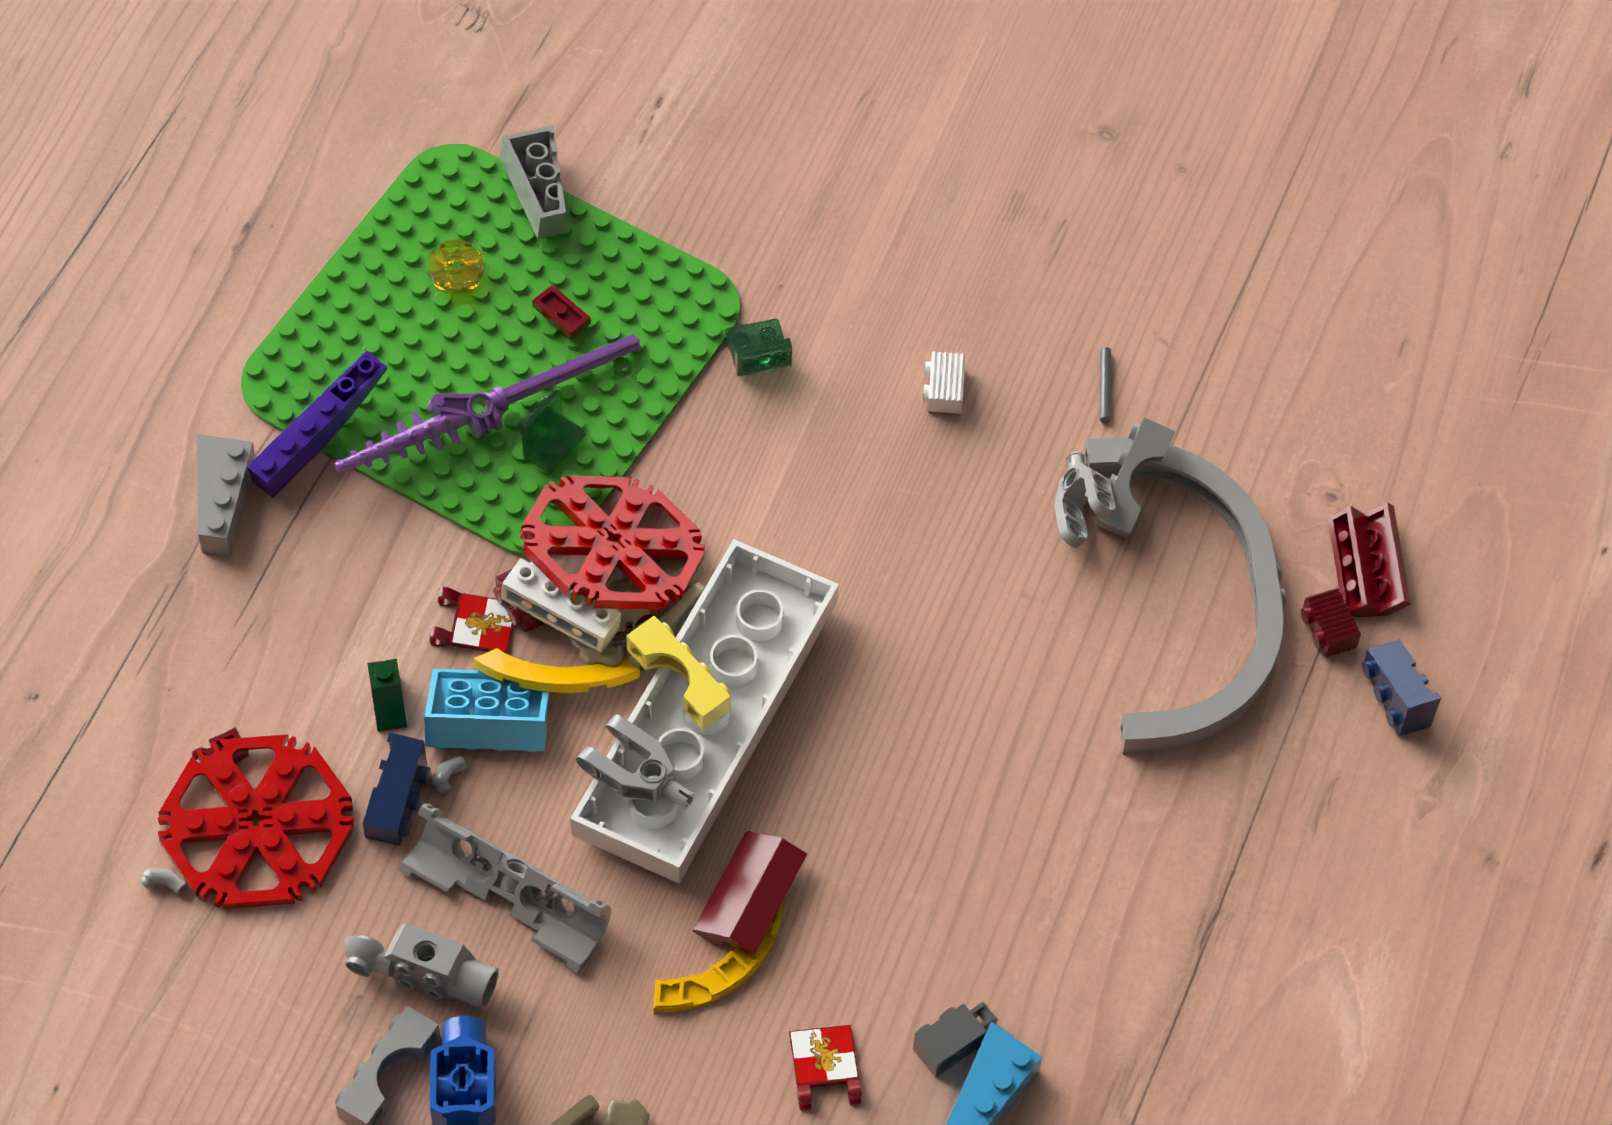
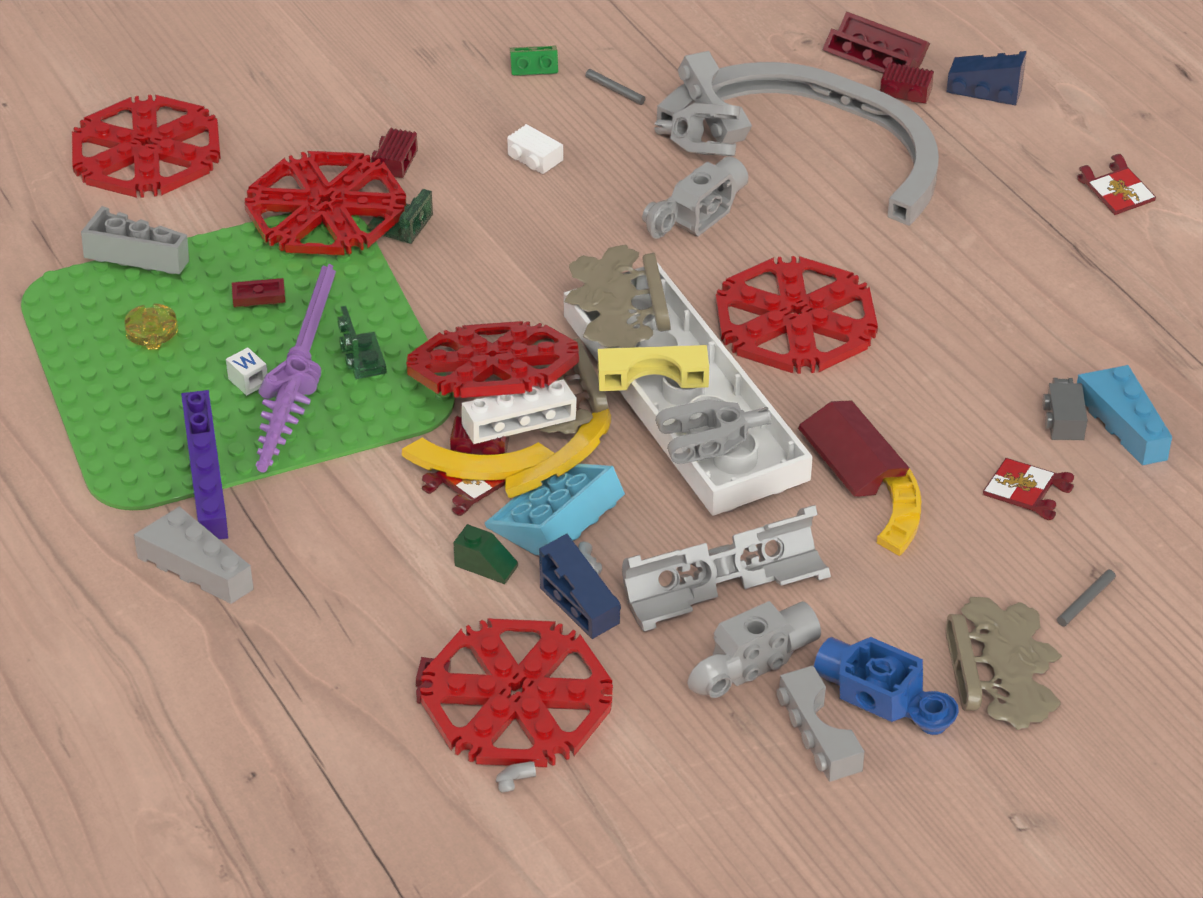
camera: 50 degrees left, 15 degrees down
(455, 372) = (246, 370): none -> white brick
(490, 619) = (474, 466): none -> yellow tile
(677, 100) = (145, 146): none -> red plate
(703, 280) = (338, 198): none -> red plate
(757, 575) = (612, 295): none -> dark tan plant
(842, 281) = (397, 151): none -> dark red brick
(910, 756) = (813, 310): none -> red plate
(978, 559) = (698, 199): none -> light grey brick
(1080, 293) = (534, 60): none -> green bracket
(1339, 903) = (1119, 189): none -> flag

